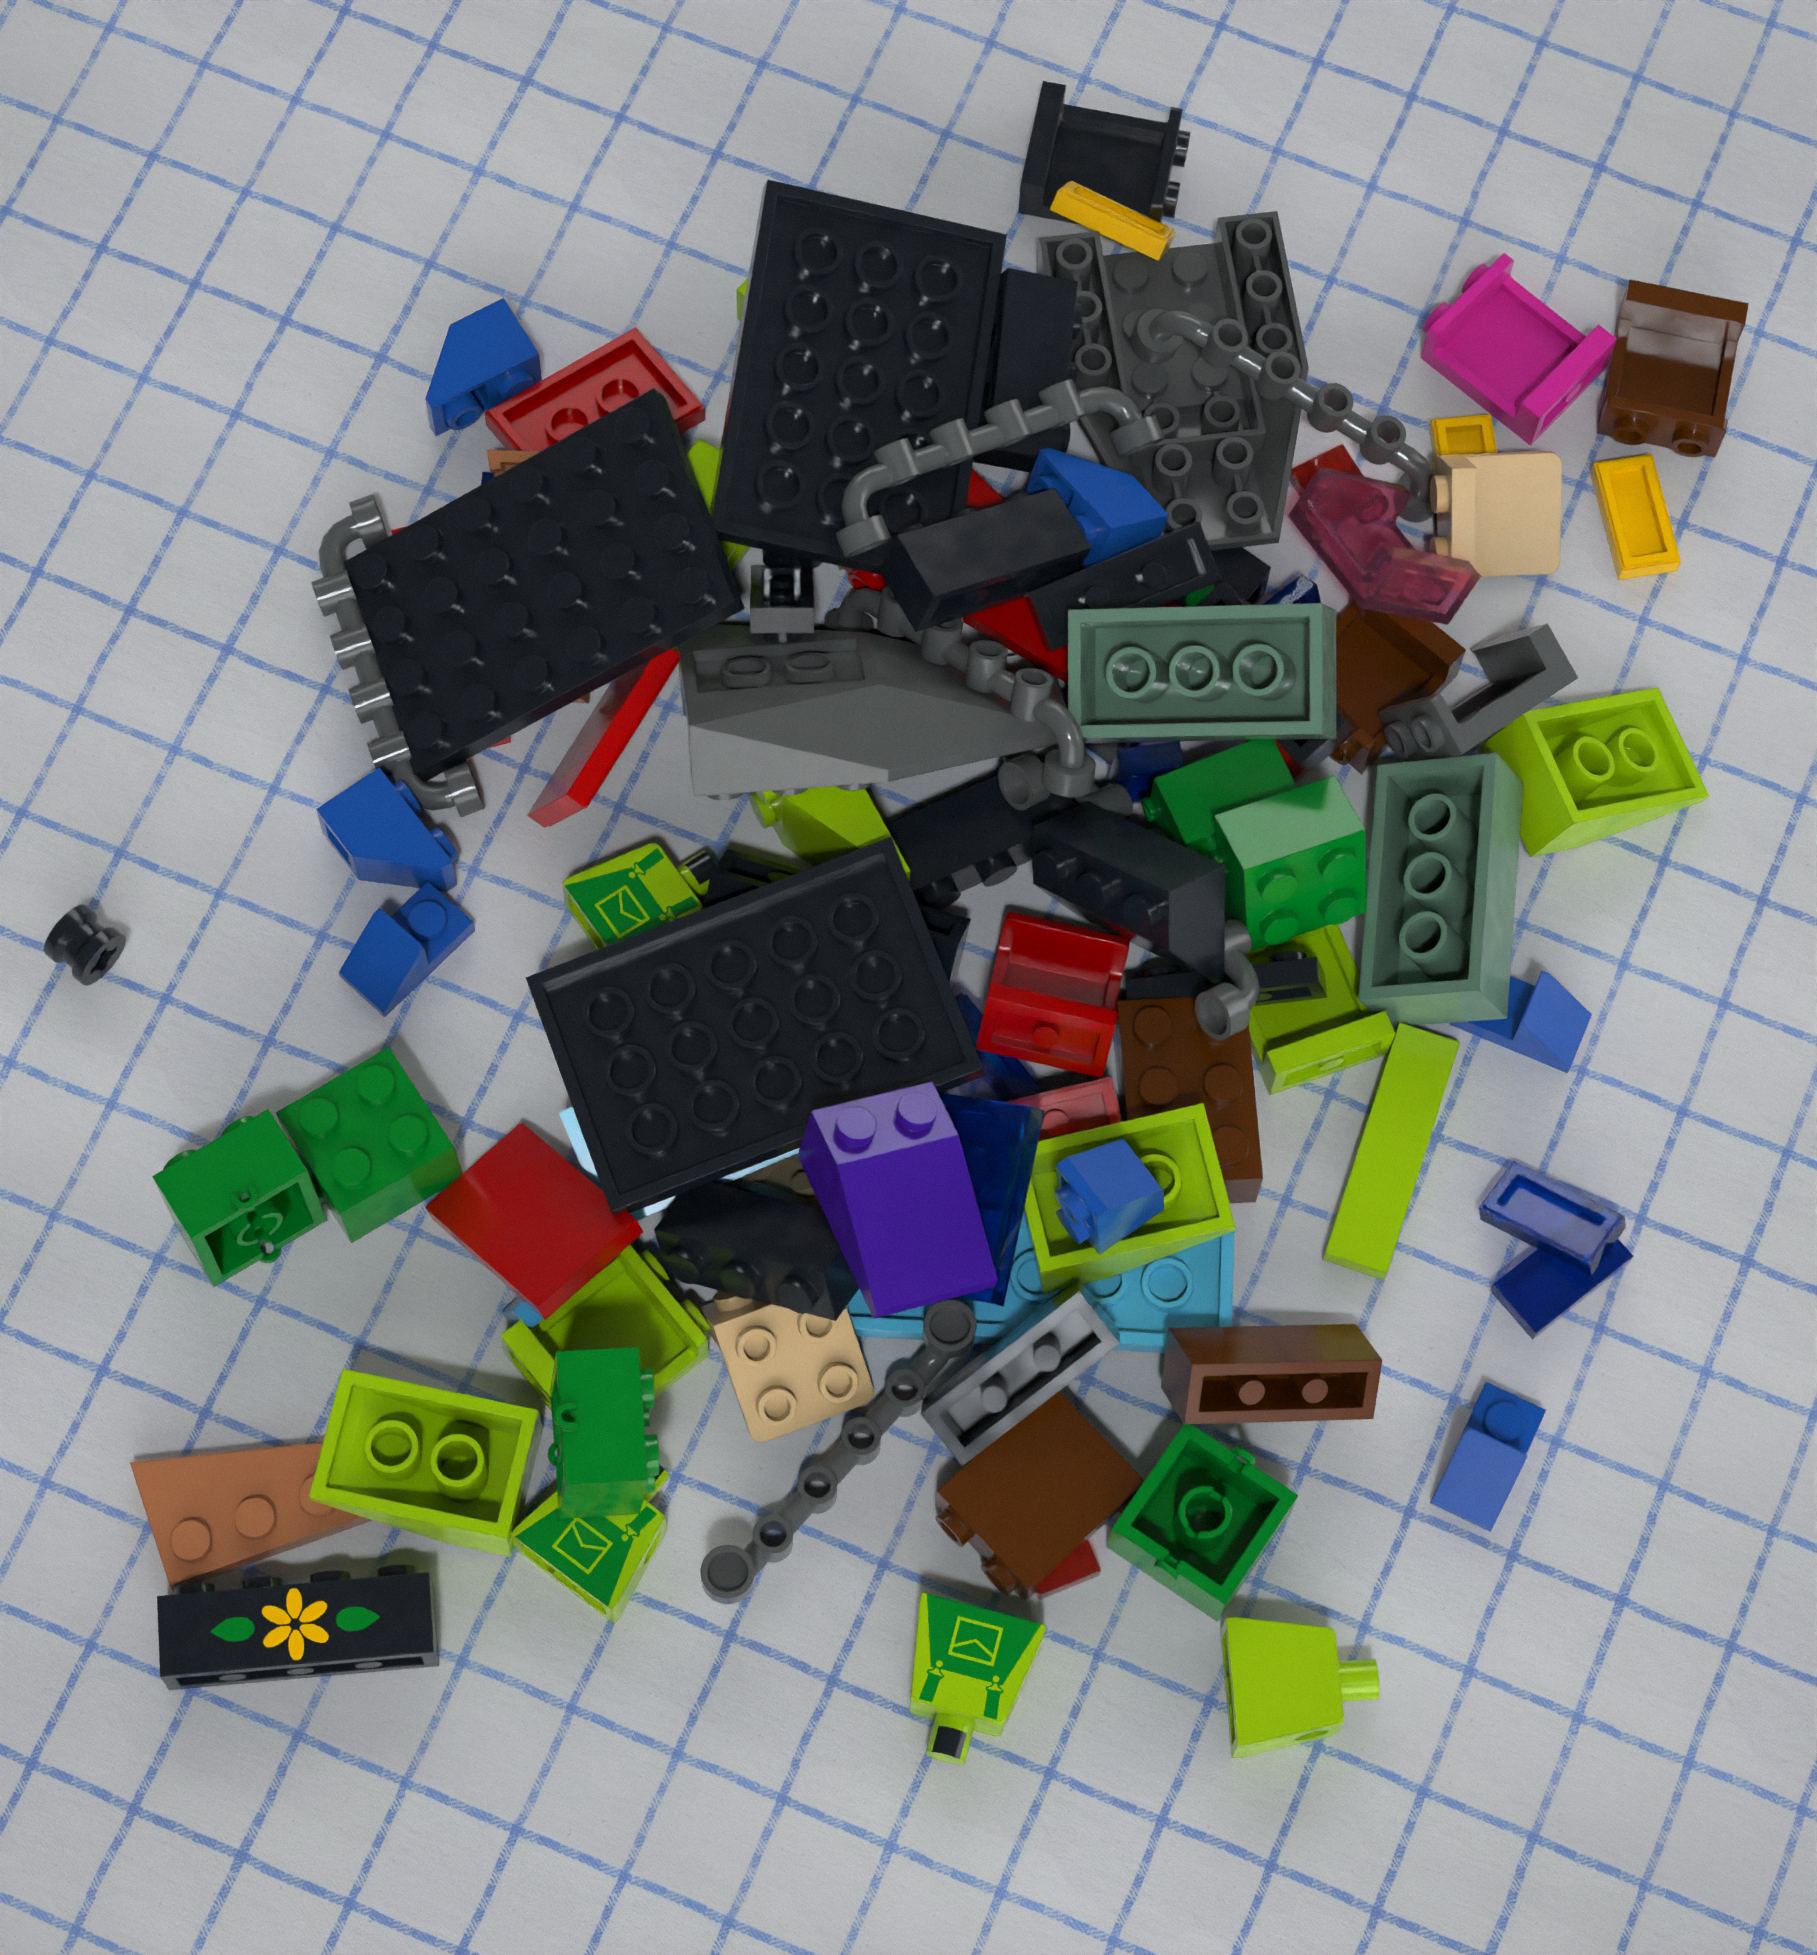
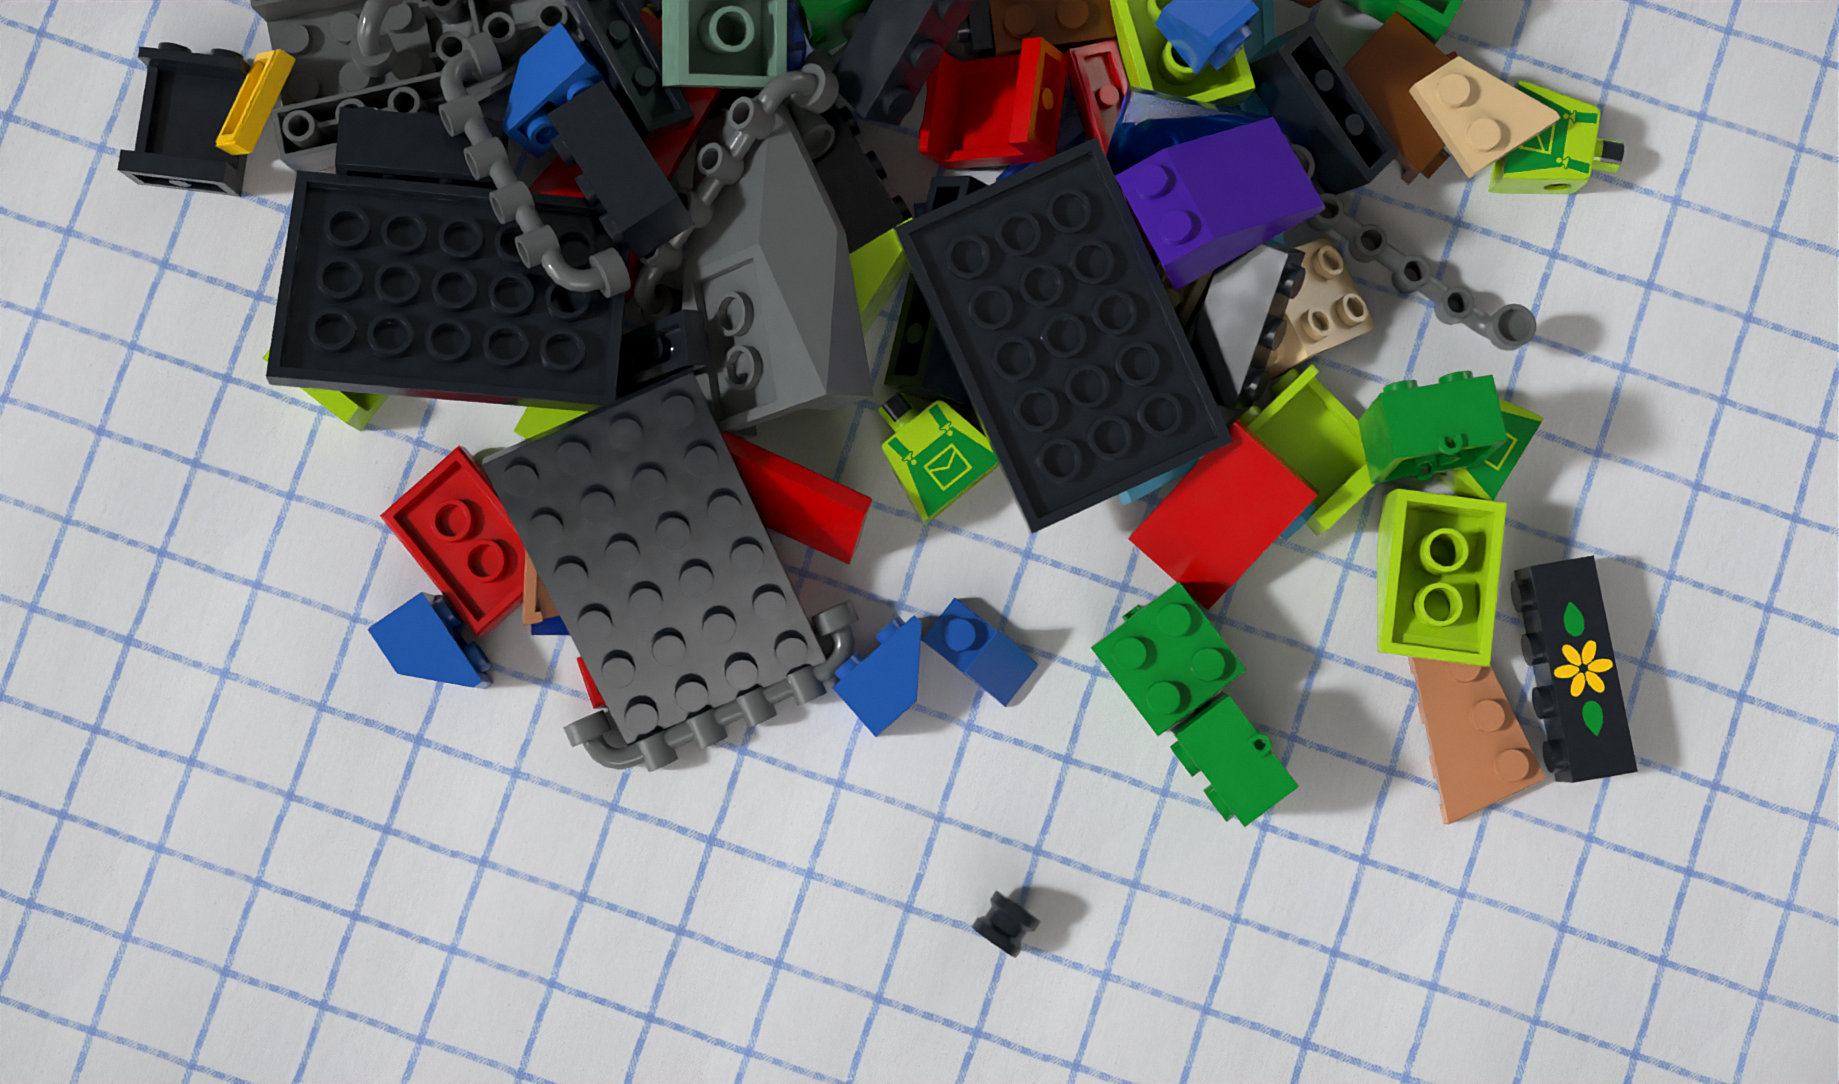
camera: 90 degrees left, 15 degrees up
(1001, 1562) = (1479, 114): none -> tan wing

